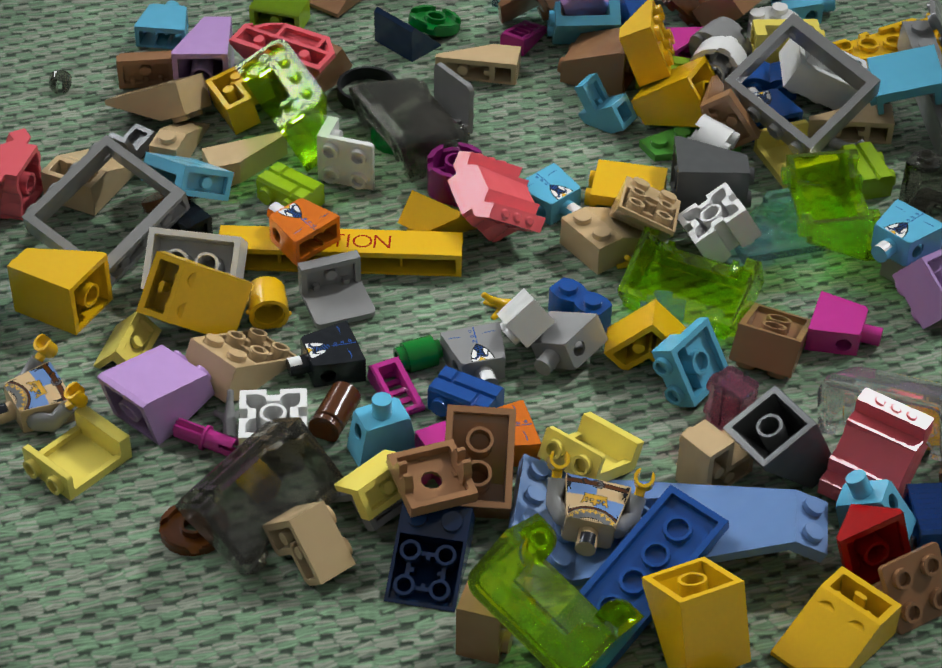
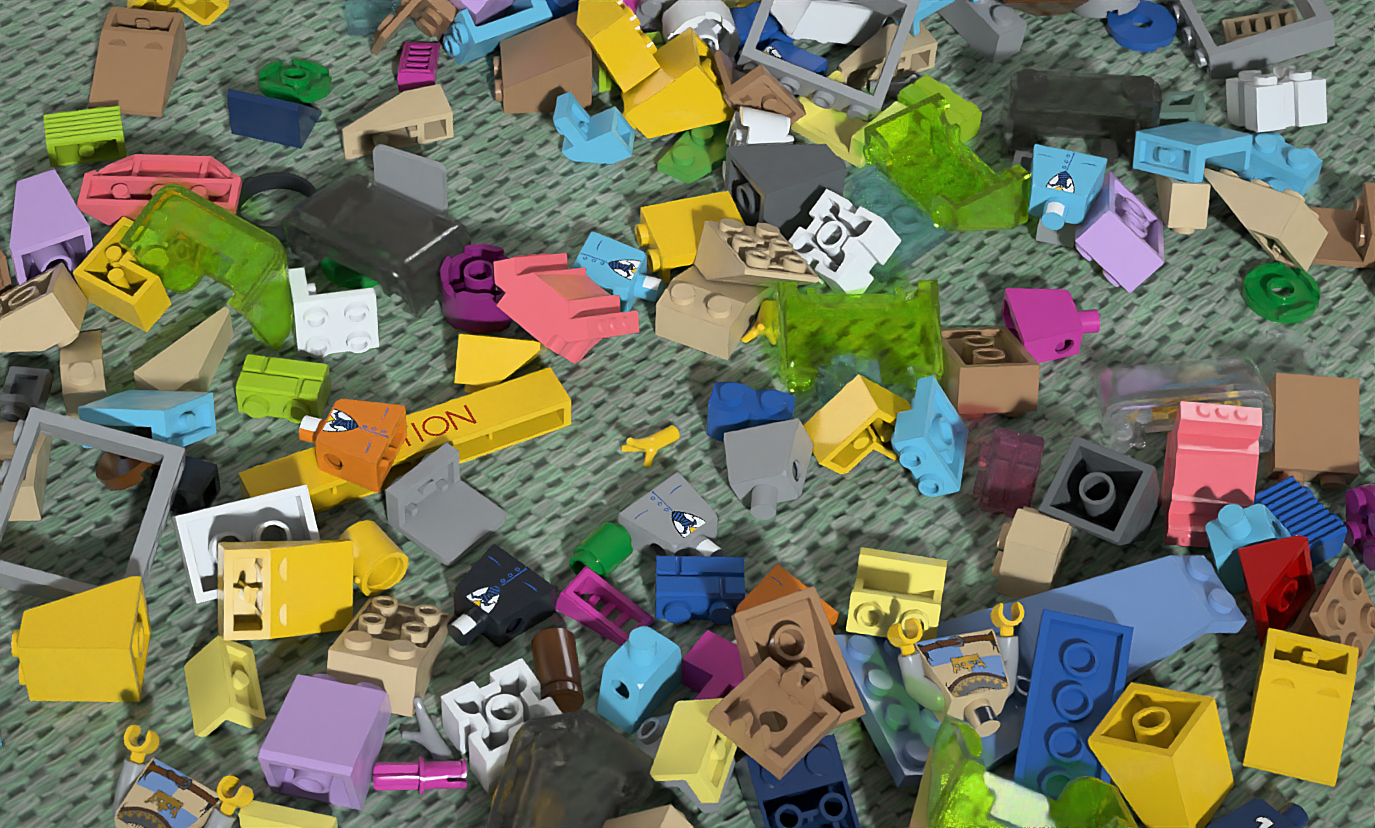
camera: 30 degrees left, 5 degrees up
(524, 319) = (708, 455): white brick -> none

